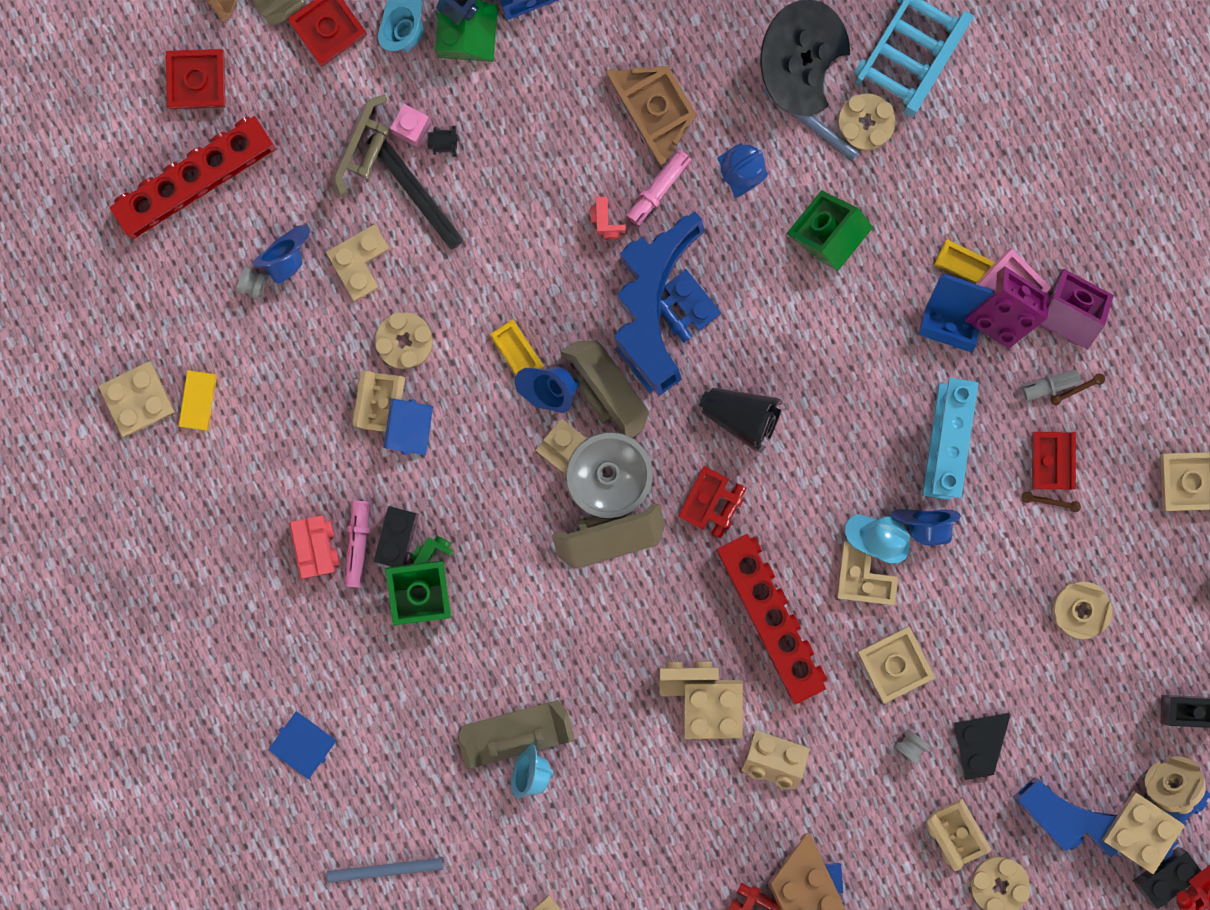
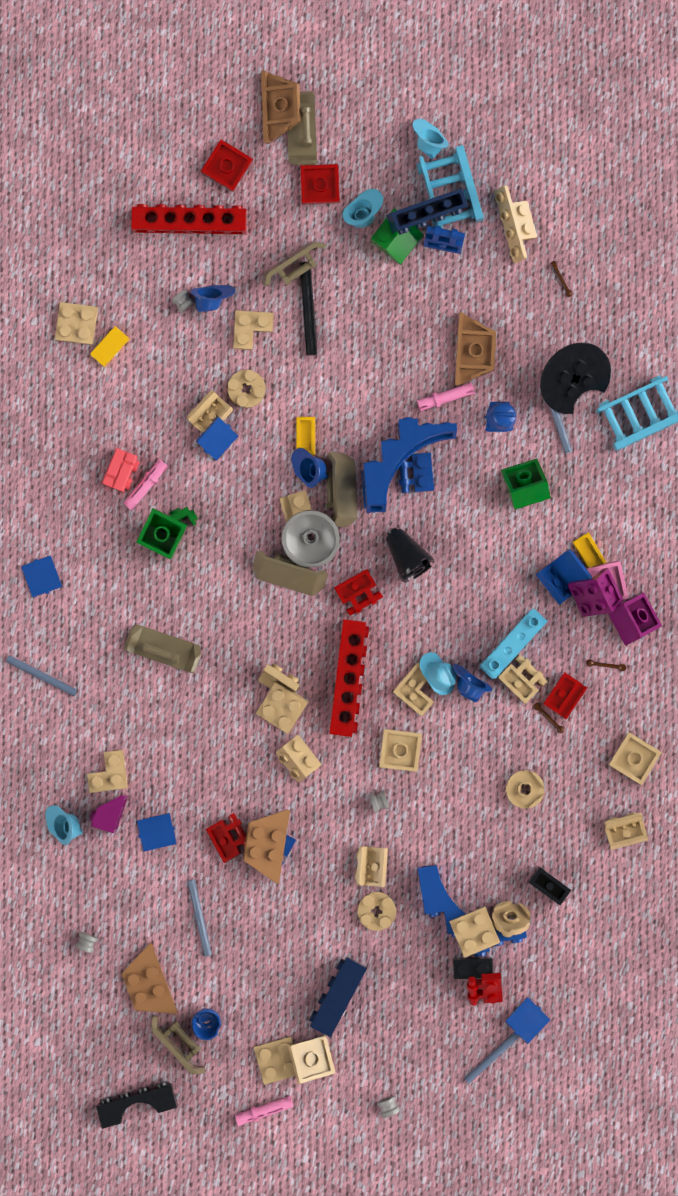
camera: 35 degrees right, 0 degrees up
(396, 537) = (169, 495): black brick -> none
(410, 125) = (329, 271): bright pink brick -> none
(443, 141) = (342, 291): black brick -> none
(530, 774) = (157, 675): medium azure piece -> none
(599, 214) = (402, 390): coral bracket -> none
(853, 131) = (589, 426): tan plate -> none
(980, 744) = (418, 826): black wing -> none
(988, 484) = (518, 683): none -> tan plate
(1050, 385) = (592, 652): light grey axle -> none

